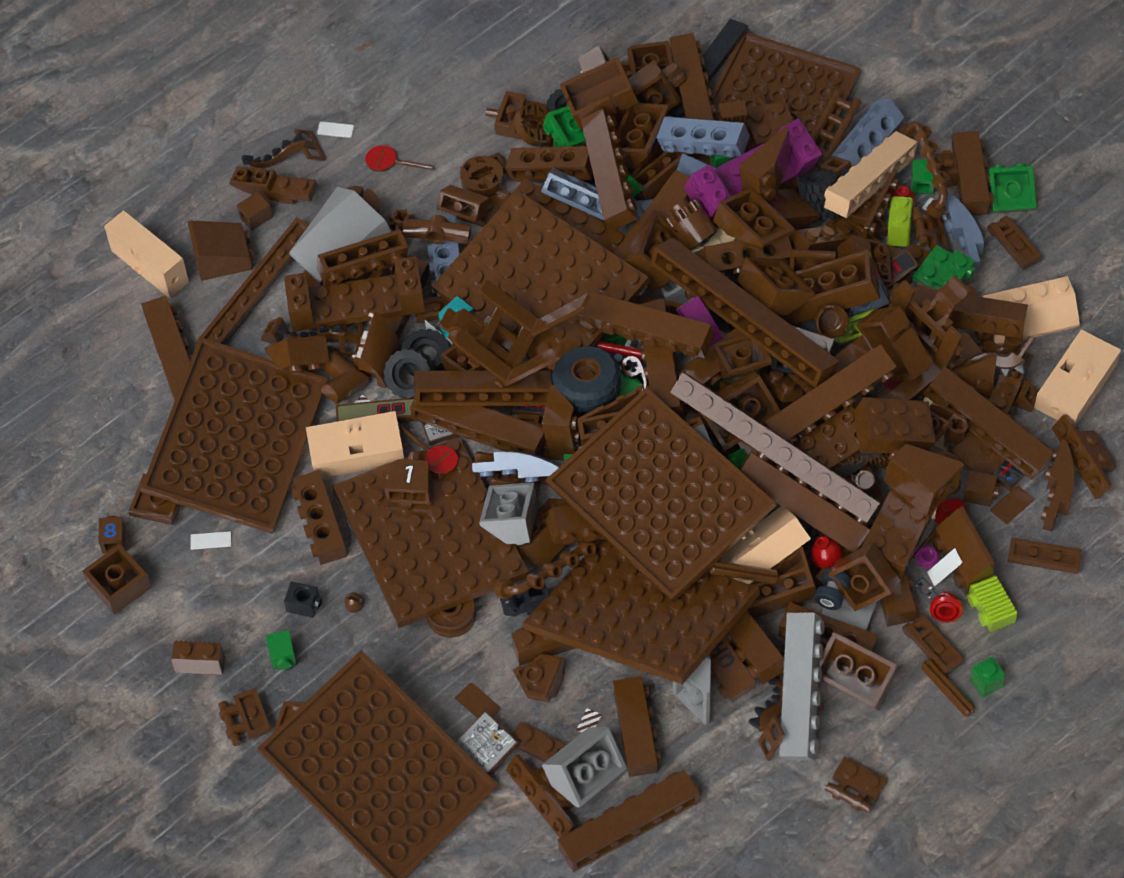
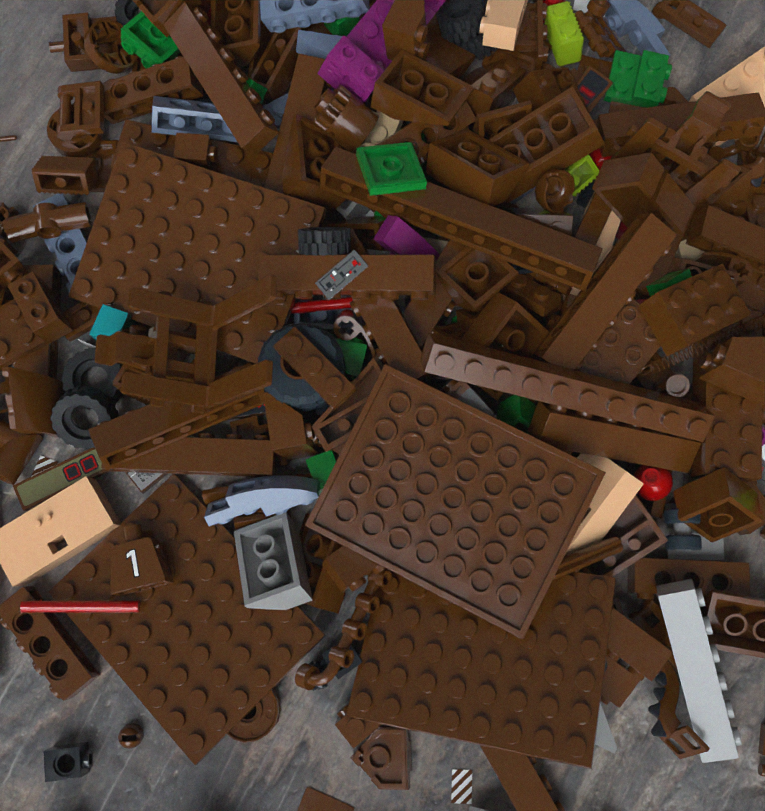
camera: 25 degrees left, 20 degrees up
(356, 495) = (80, 606): none -> red bar
(440, 458) = (161, 517): red piece -> none
(498, 163) = (87, 109): none -> reddish brown plate
(570, 212) = (195, 149): none -> reddish brown brick
(595, 376) = (314, 368): none -> reddish brown plate
(637, 294) = (324, 240): none -> black tyre
(639, 319) = (341, 274): none -> dark grey sticker
(706, 262) = (391, 168): none -> green tile

